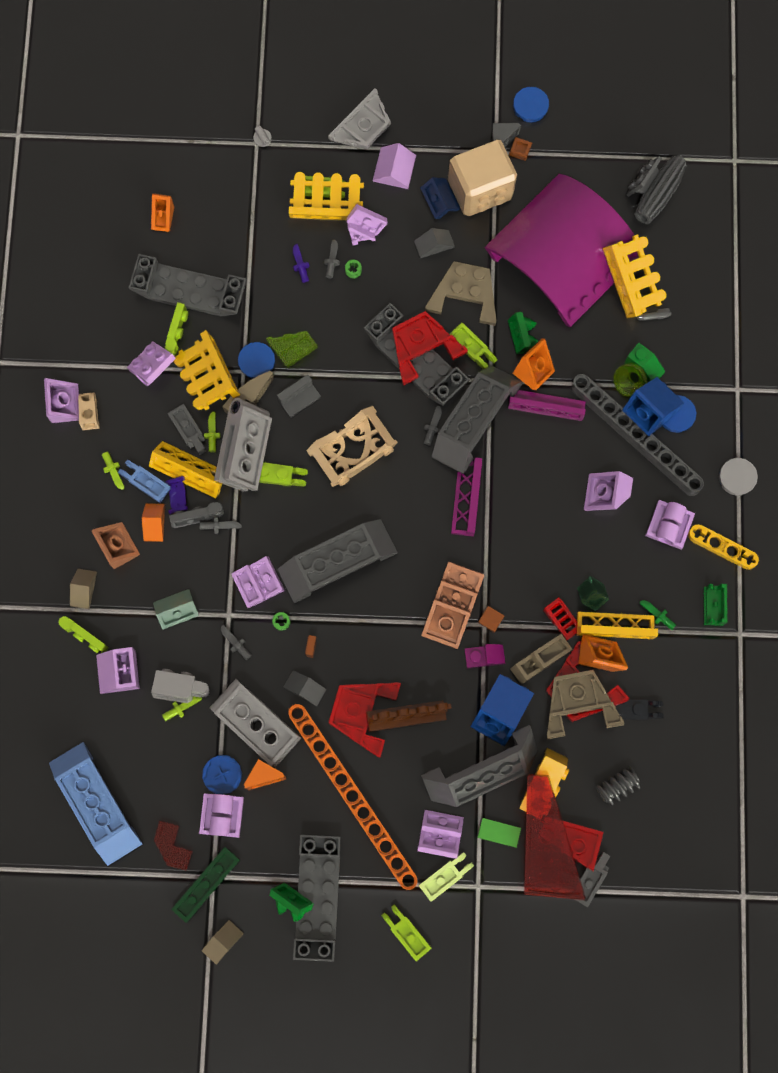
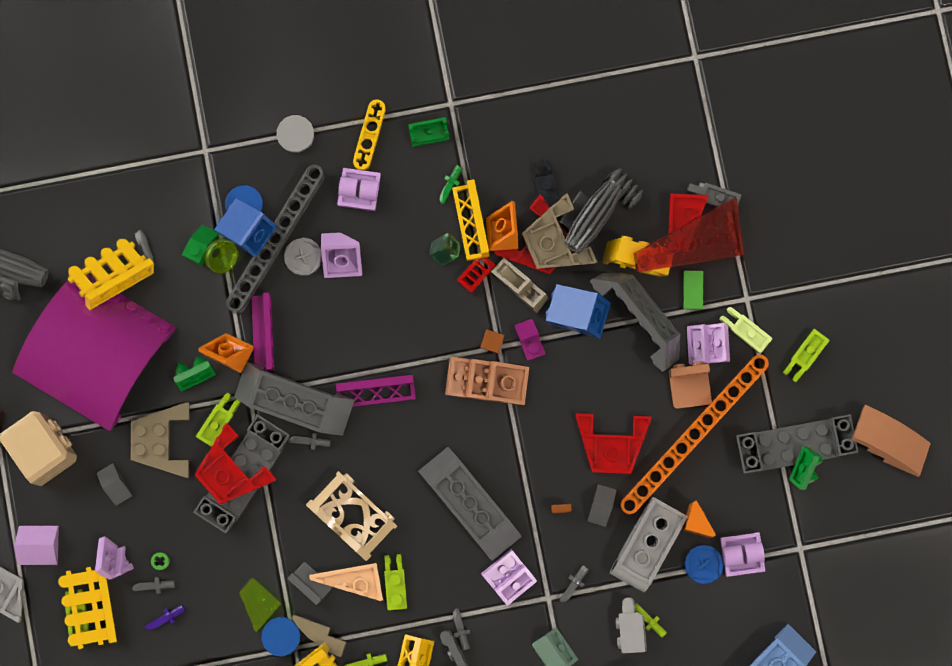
camera: 100 degrees left, 5 degrees up
(165, 840) = (790, 591): clear red tile -> none
(205, 884) = (809, 552): dark green plate -> none
(222, 942) = (857, 523): dark tan slope -> none
(243, 446) = (376, 624): light grey hinge -> none
(285, 617) = (547, 546): bright green bush -> none
(290, 443) = (359, 580): none -> light nougat wing
(296, 999) = (891, 440): none -> nougat slope
(402, 804) = (690, 385): none -> nougat bracket
(407, 715) = (605, 400): reddish brown fence -> none
(439, 197) = (62, 490): dark blue panel -> none
(596, 742) = (589, 215): none -> dark grey plate
(614, 456) = (303, 256): none -> light grey tile

